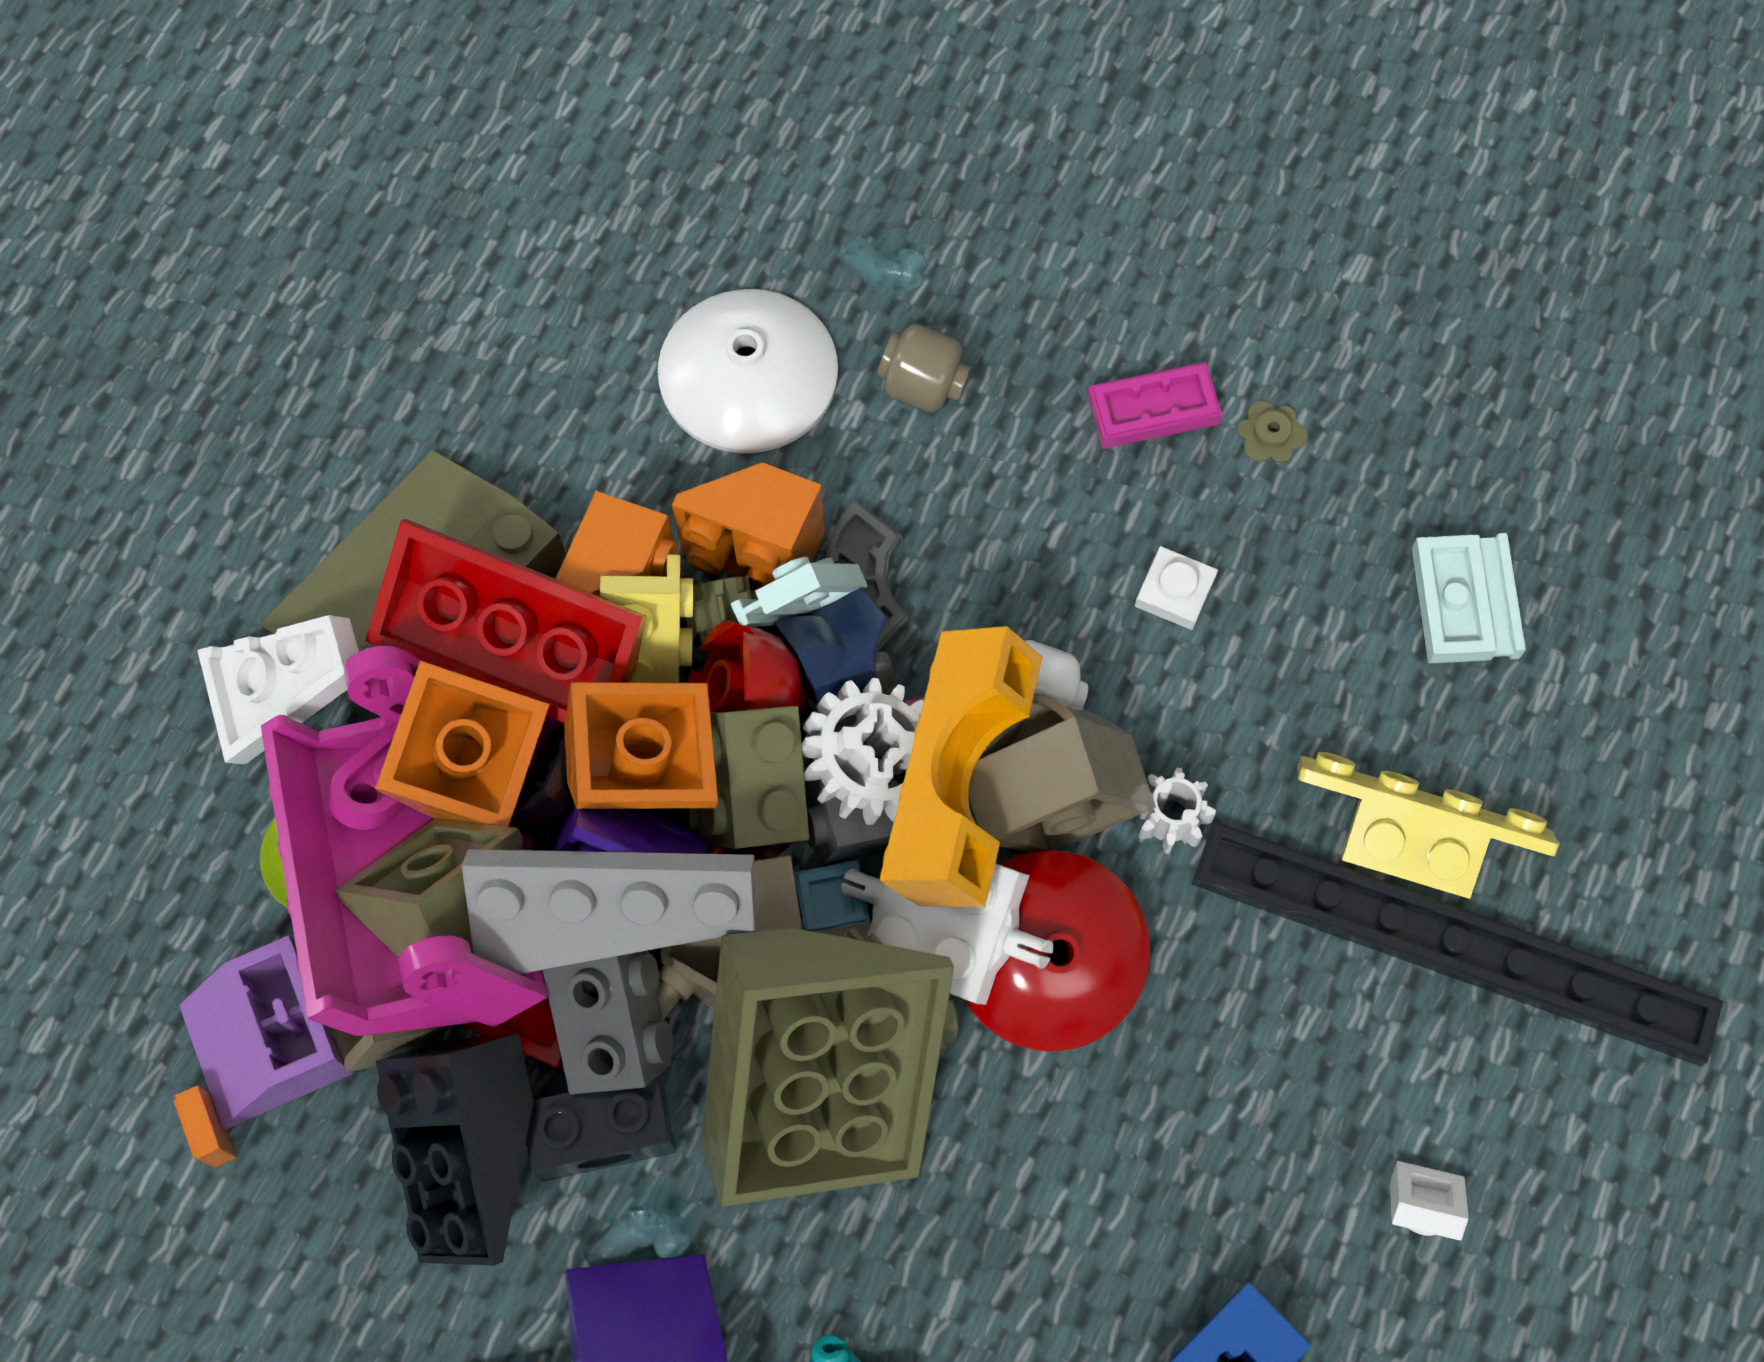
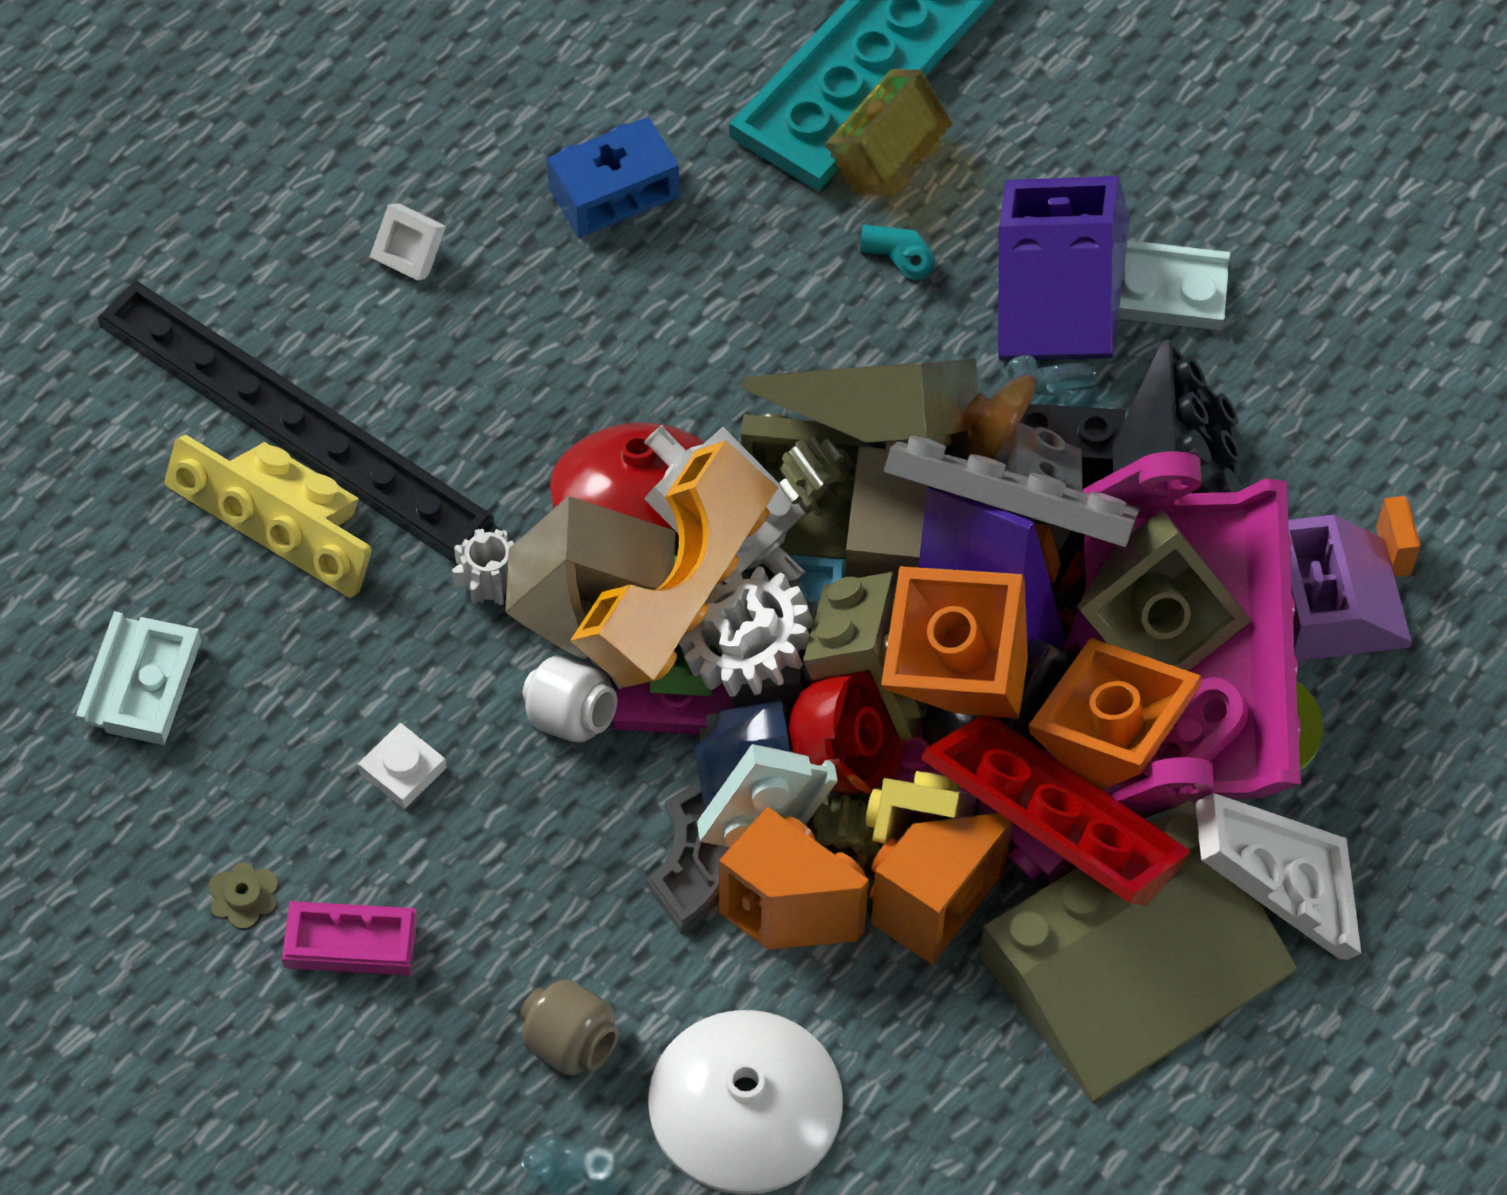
camera: 165 degrees left, 10 degrees down
(668, 1086) = (995, 418): none -> clear orange dish

